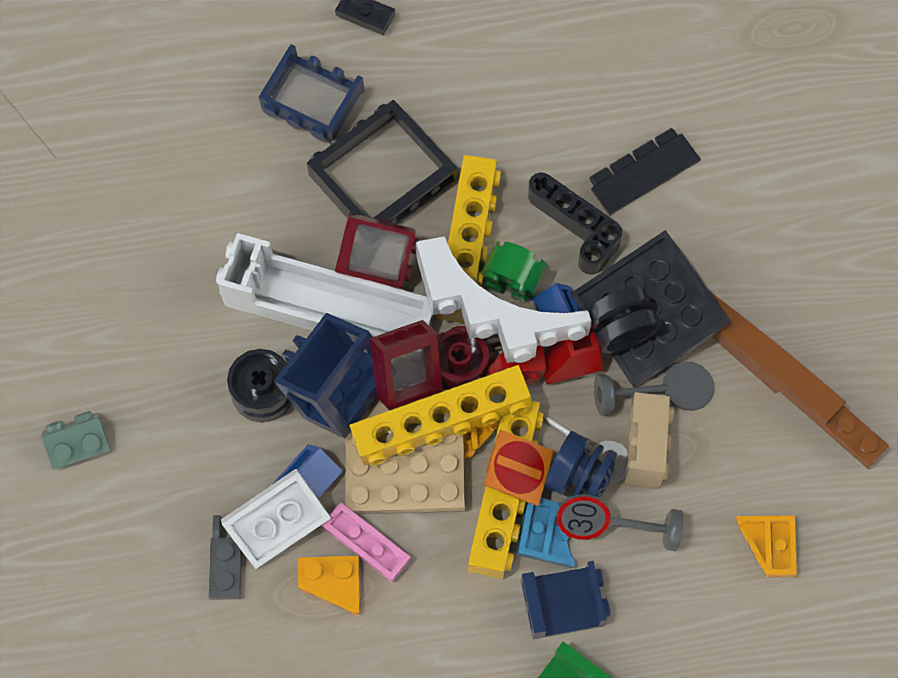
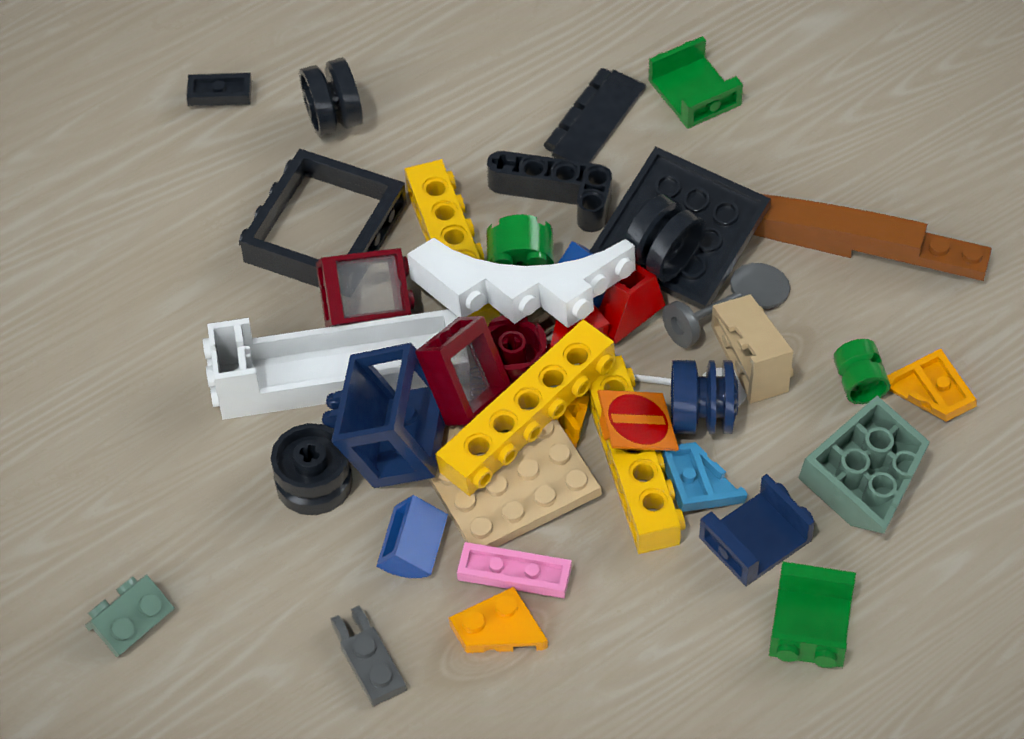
camera: 25 degrees left, 15 degrees down
(275, 518) = (405, 584): white plate -> none
(310, 95) = (204, 187): window -> none
(438, 62) = (331, 96): none -> black wheel
(589, 516) = (736, 435): dark grey piece -> none
(677, 591) = (866, 466): none -> sand green wedge
(720, 508) = (861, 371): none -> green wheel
(737, 176) = (693, 84): none -> green panel

